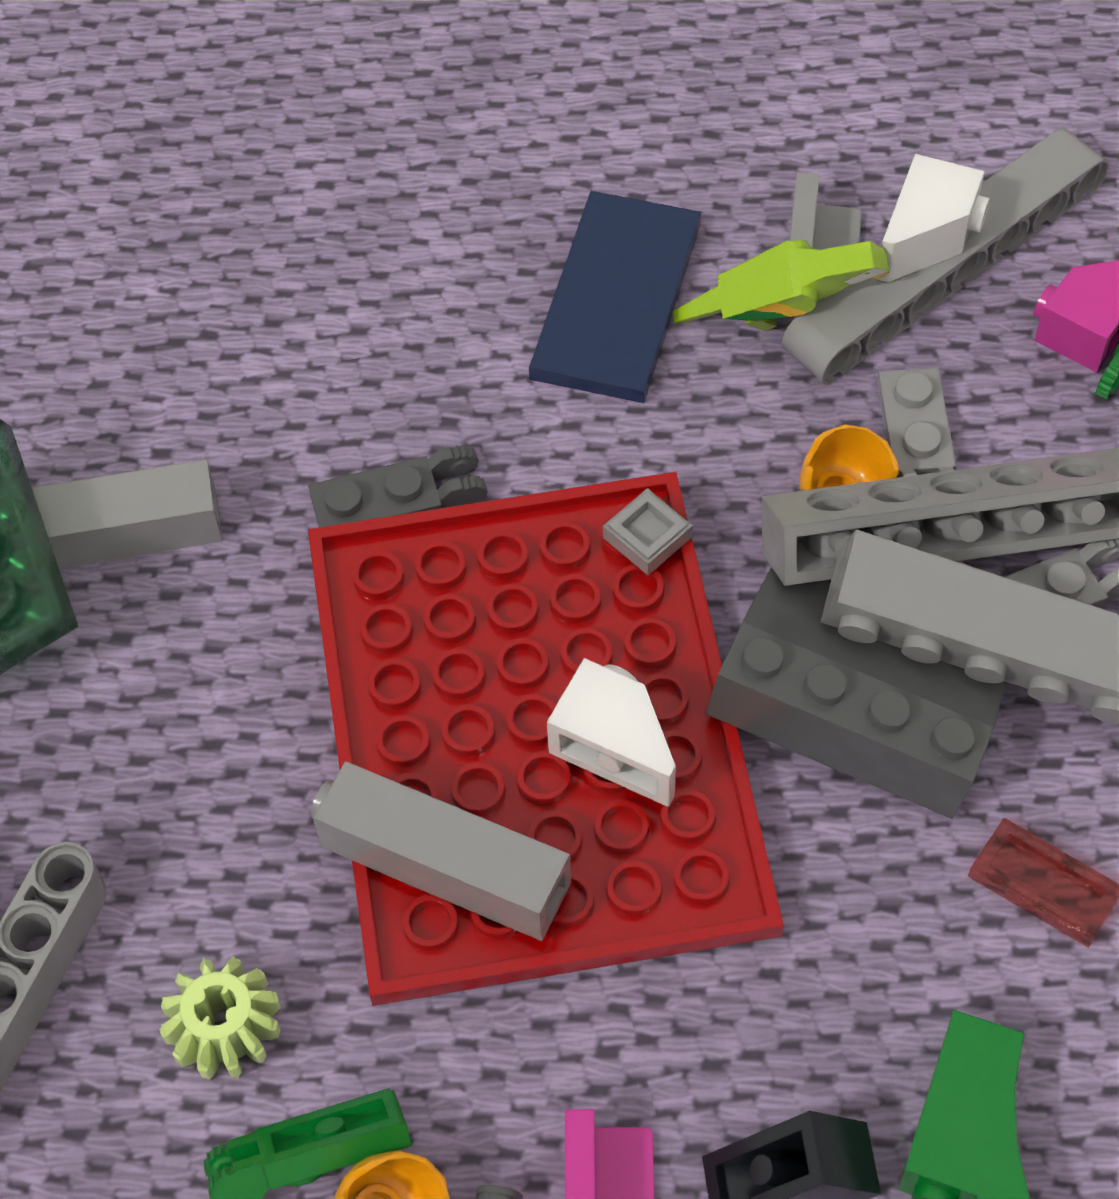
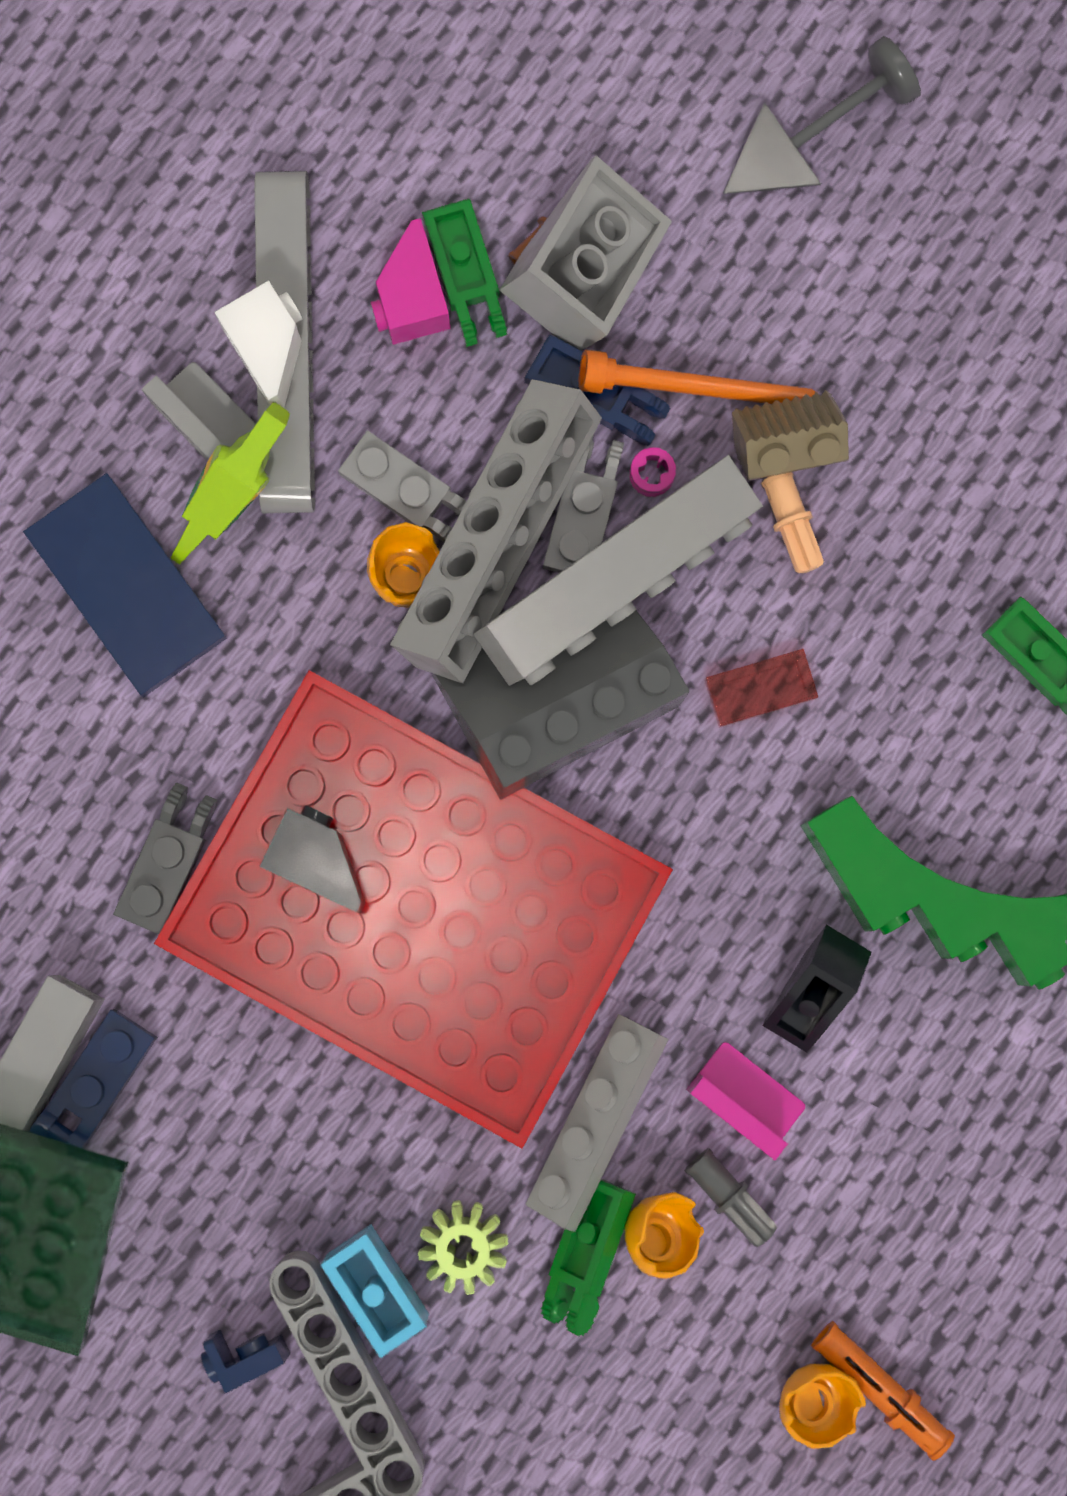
camera: 60 degrees left, 25 degrees up
(111, 956) = (375, 1290): none -> medium azure brick
(143, 582) = (96, 1080): none -> dark blue plate
(442, 849) = (468, 1042): light grey brick -> none
(456, 1053) = (596, 1123): none -> light grey plate
(503, 585) = (314, 857): none -> slope
(613, 731) = (473, 870): white slope -> none
(647, 531) = (342, 728): light grey tile -> none

